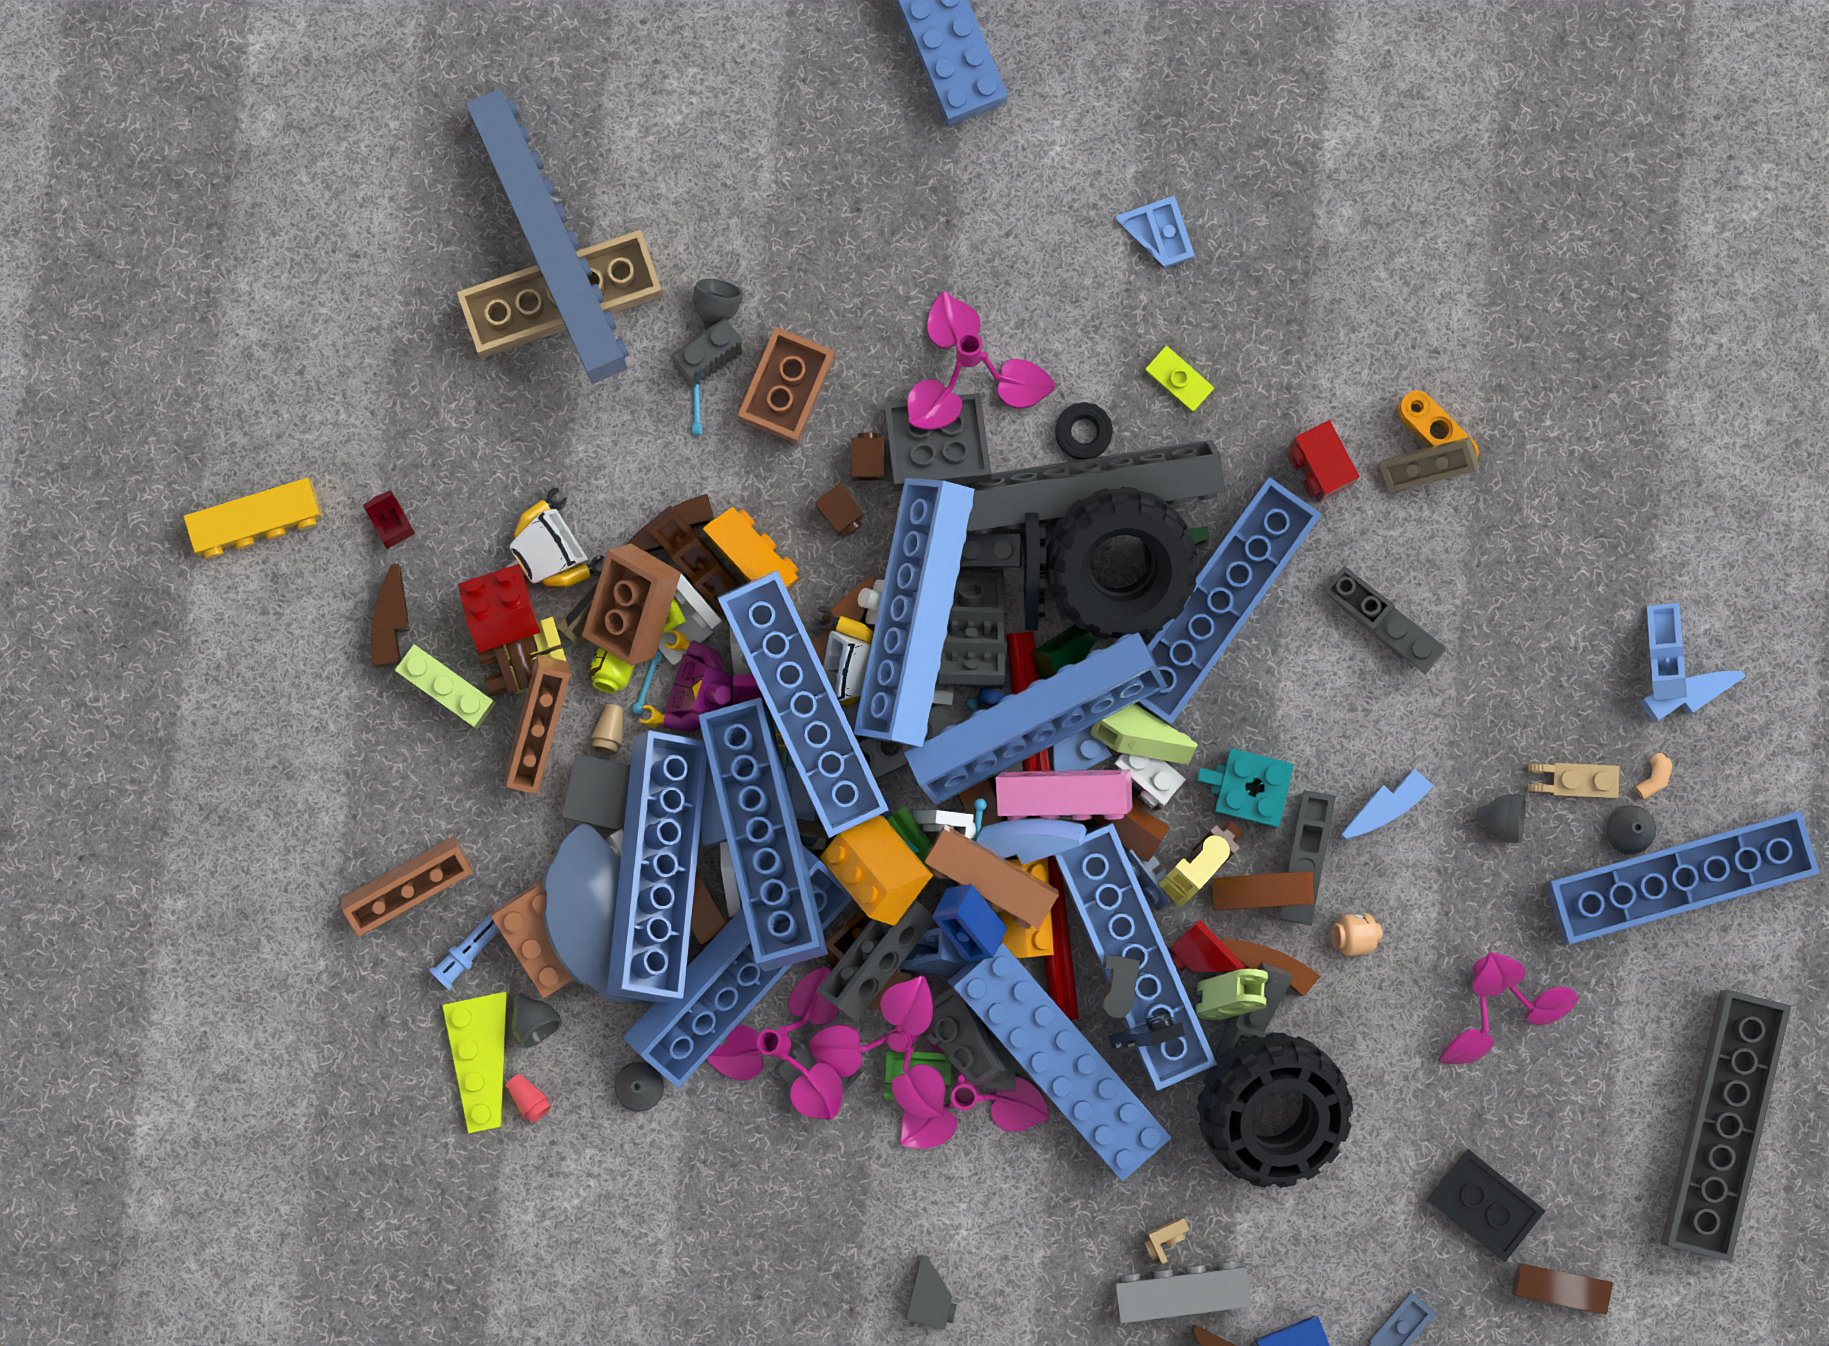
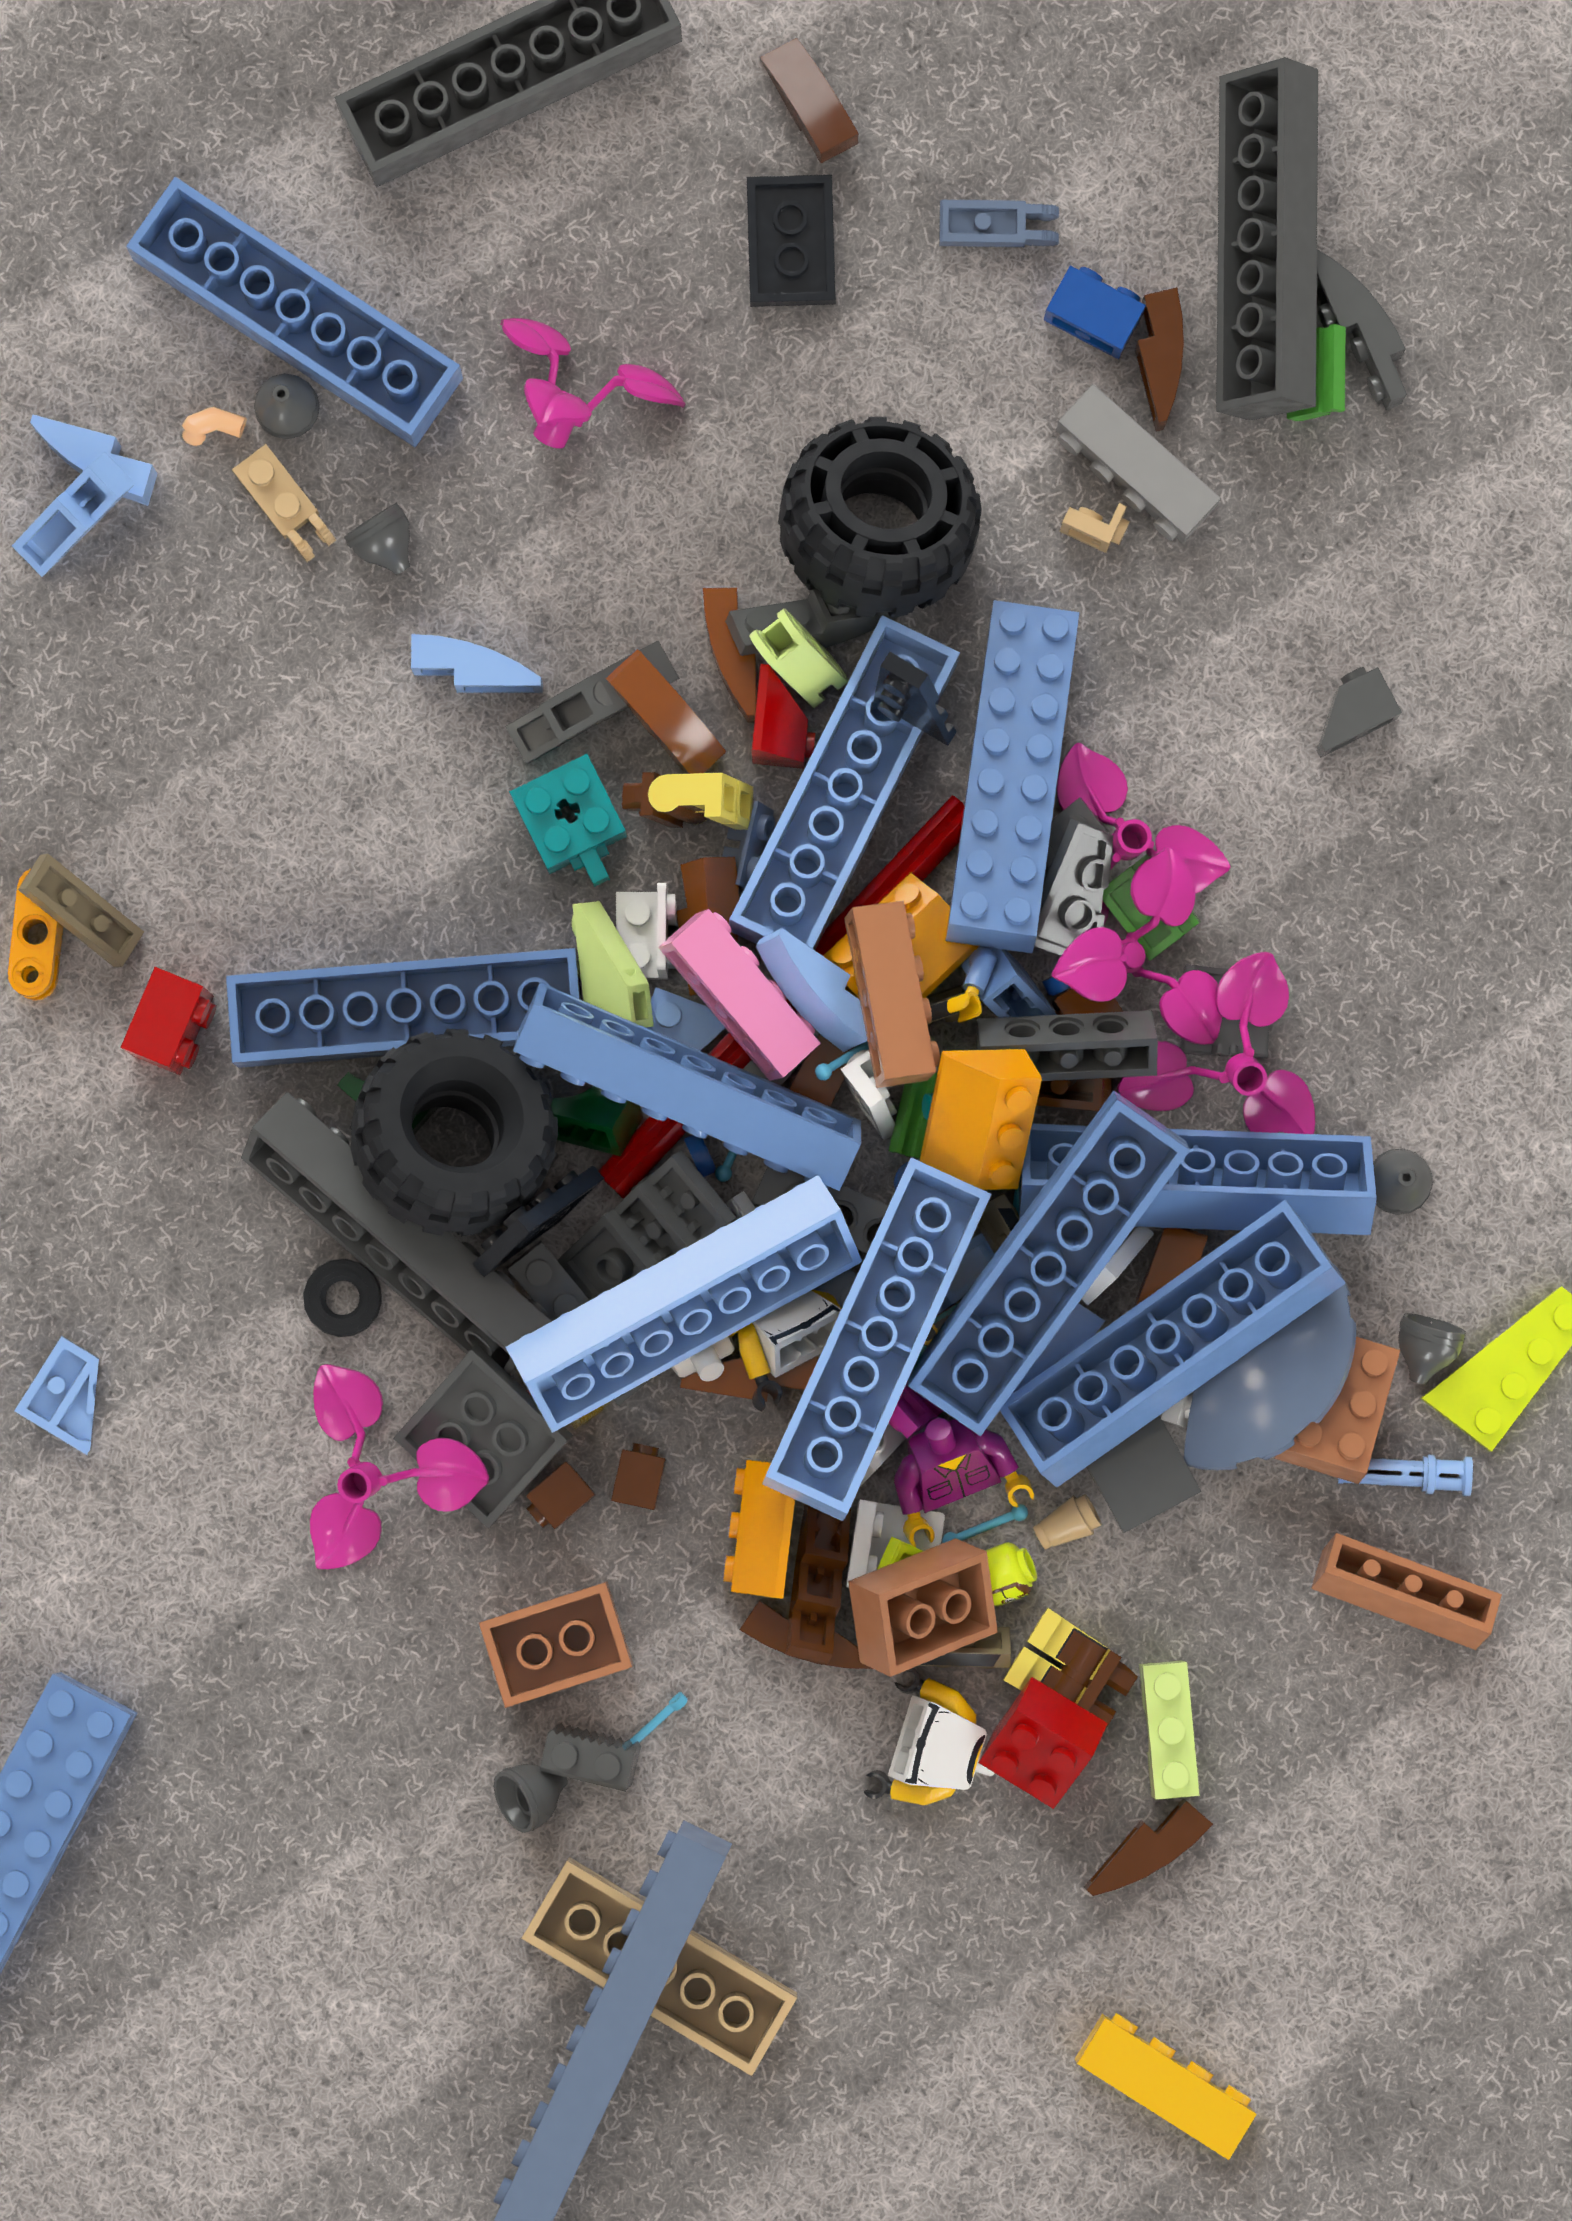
camera: 125 degrees left, 0 degrees up
(388, 519) = (1046, 1941): dark red bracket -> none
(528, 1098) = (1509, 1282): coral cone -> none
(537, 724) = (1128, 1598): nougat brick -> none
(969, 922) = (957, 973): blue brick -> none
(1120, 994) = (897, 765): dark grey leg -> none
(1179, 379) = (204, 1245): neon yellow plate -> none
(1356, 934) = (628, 589): light nougat head -> none
(1384, 620) = (281, 825): dark grey slope -> none

